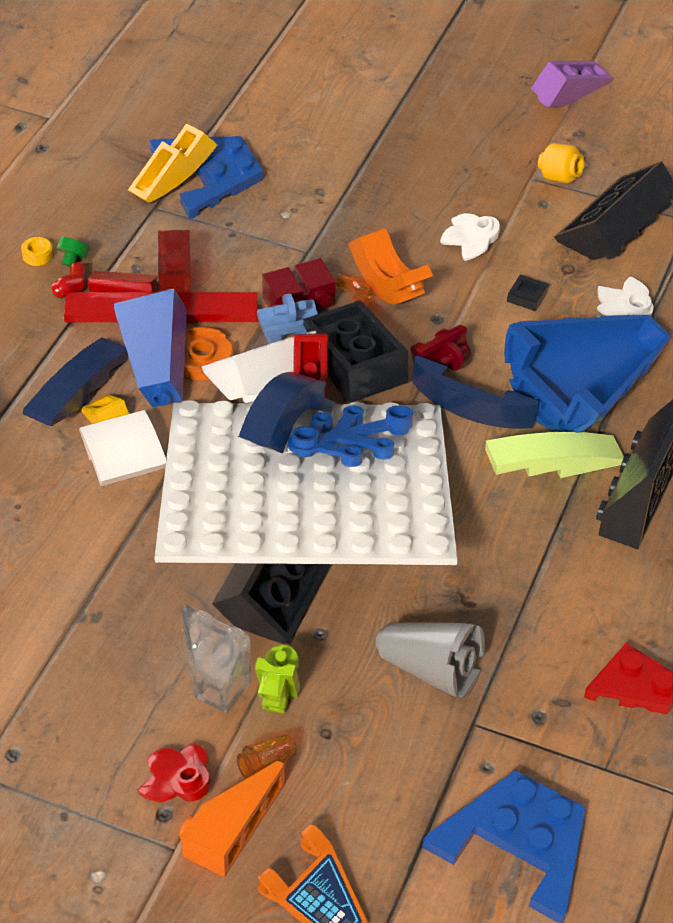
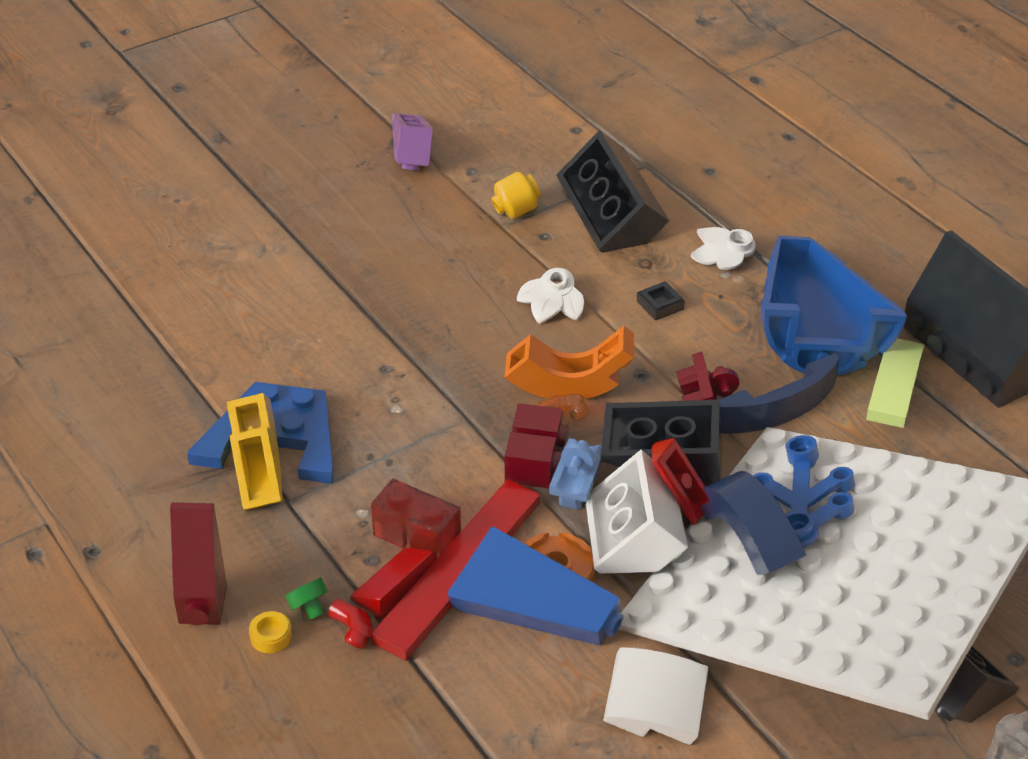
camera: 55 degrees left, 5 degrees down
(38, 184) = (197, 564): none -> dark red slope
(71, 385) = (532, 687): dark blue slope -> none
(105, 409) = (584, 686): yellow slope -> none

